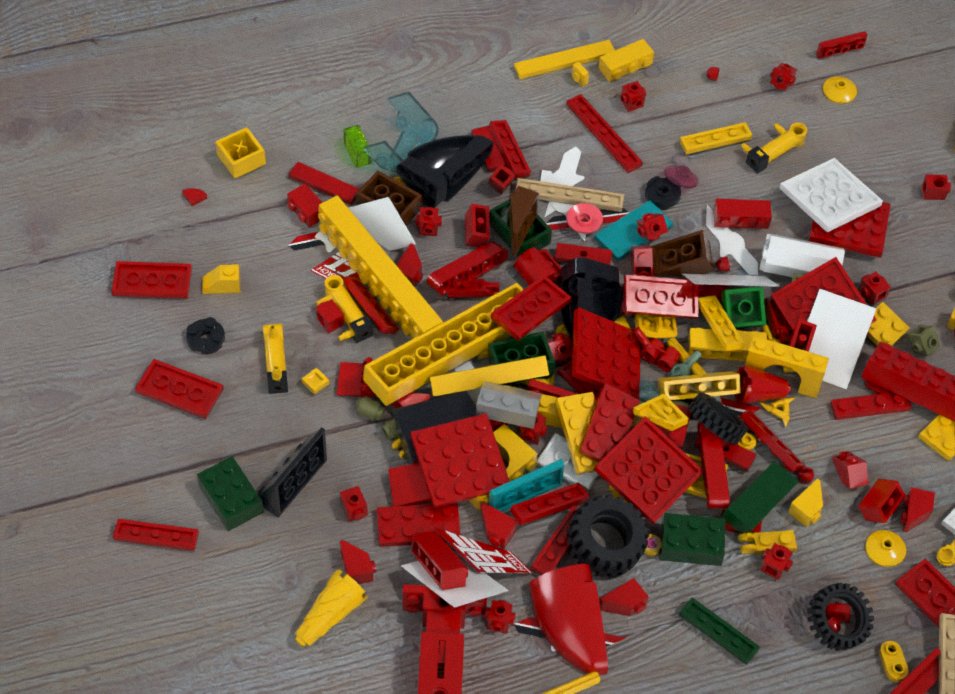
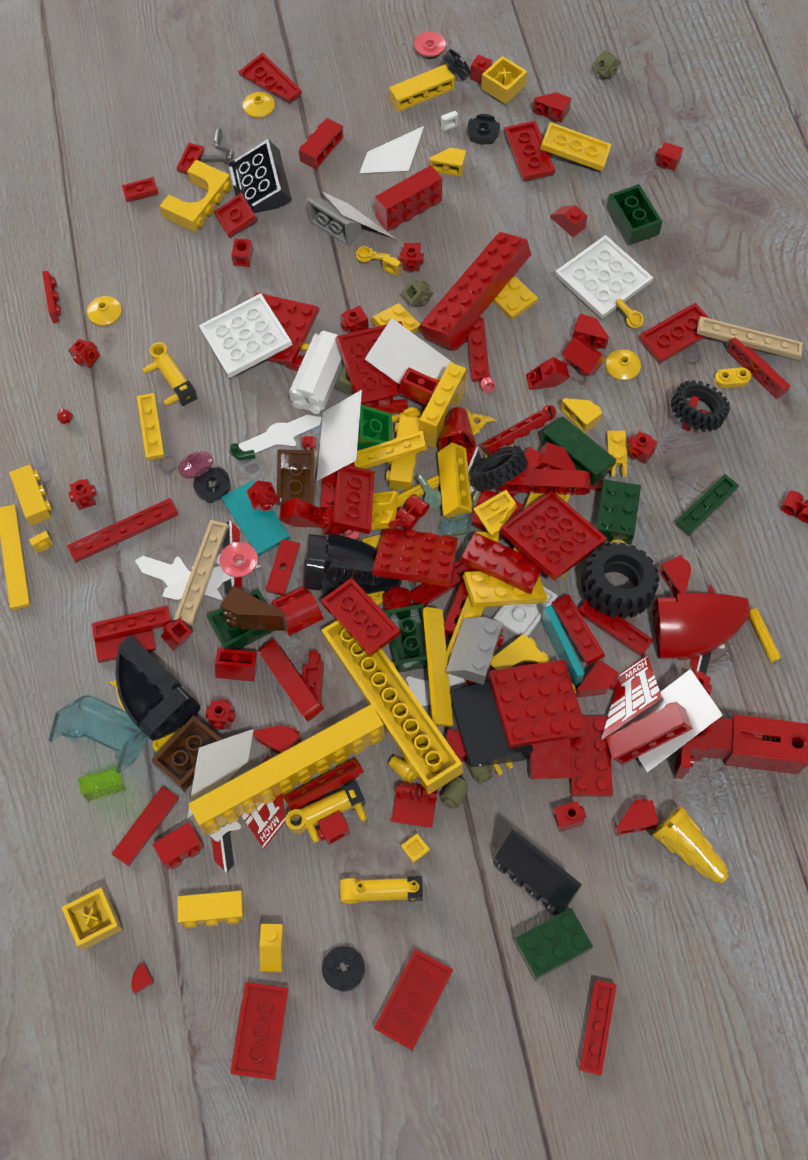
camera: 80 degrees left, 10 degrees up
(252, 234) = (211, 909): none -> yellow brick
(700, 211) = (239, 454): none -> dark green arm
(741, 475) = (554, 458): none -> red slope
(742, 213) = (252, 416): red brick -> none
(827, 415) = (491, 384): none -> coral hinge

